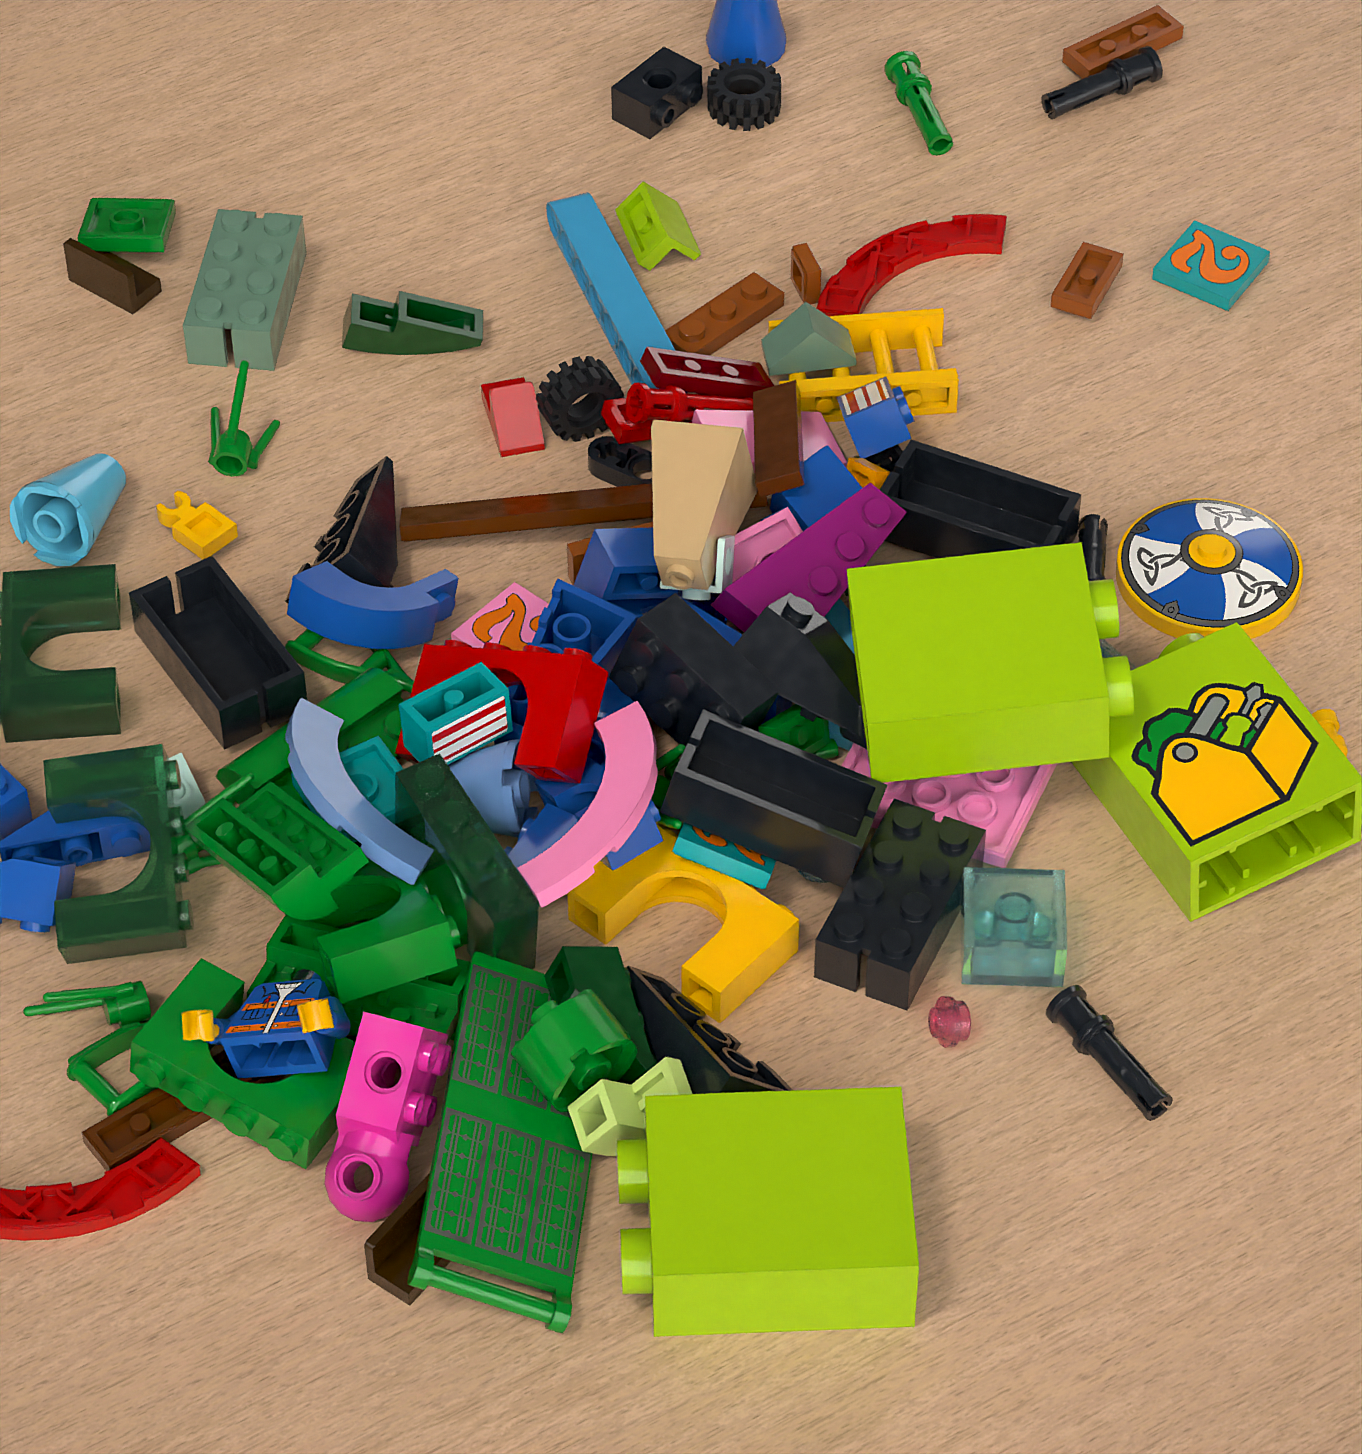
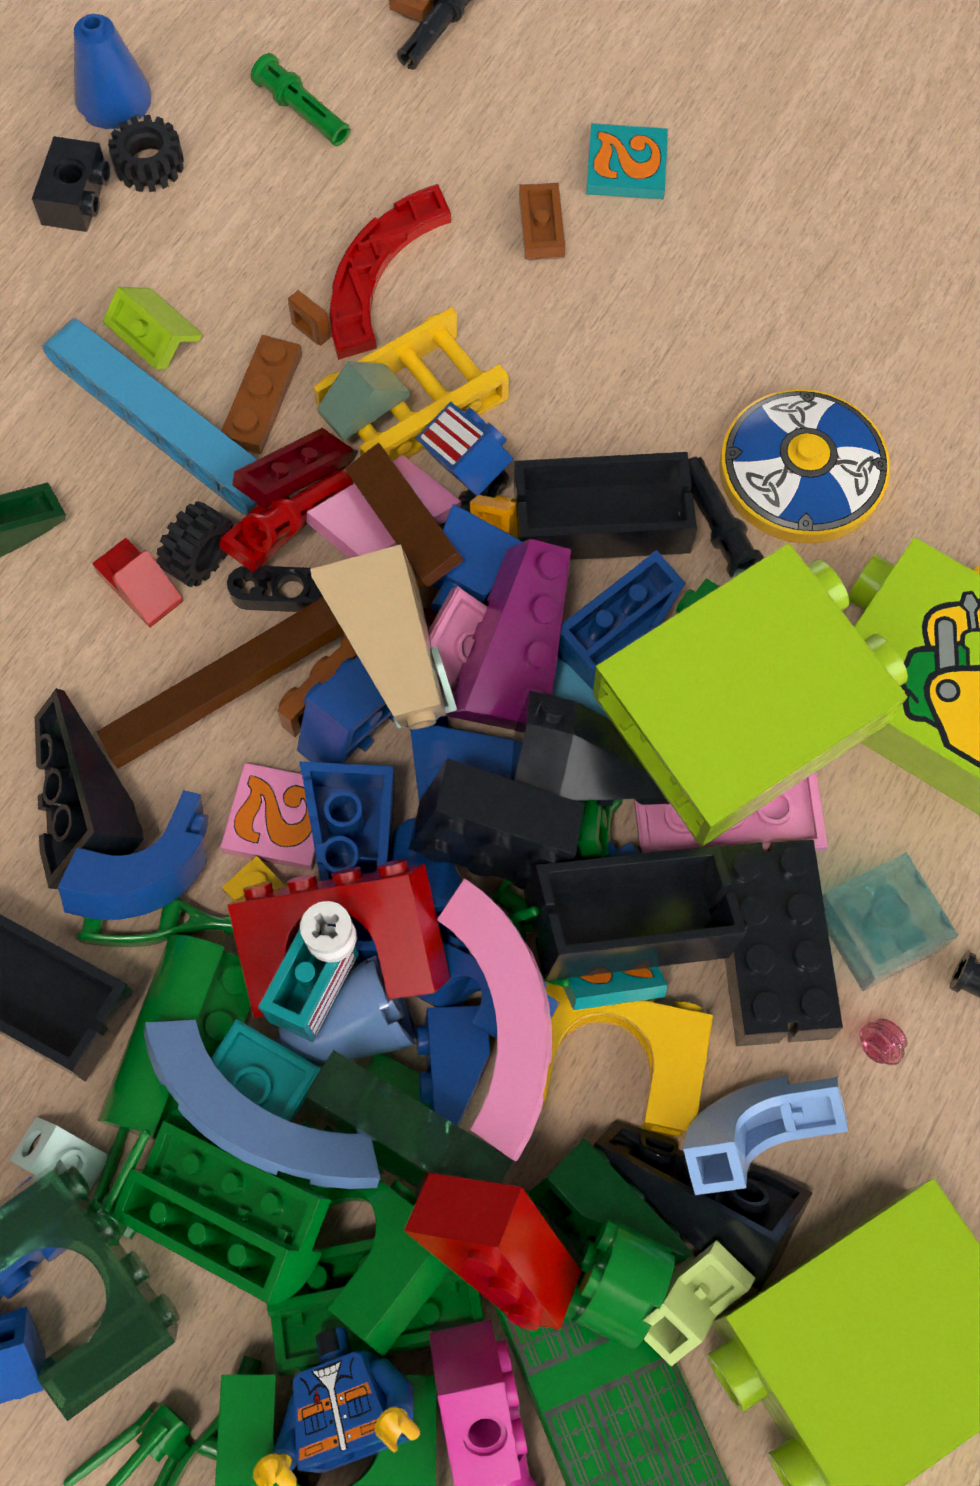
camera: 30 degrees left, 20 degrees up
(484, 949) = (498, 1246): none -> red wedge
(490, 669) = (334, 942): none -> white wheel
(780, 1014) = (755, 1118): none -> light blue arch

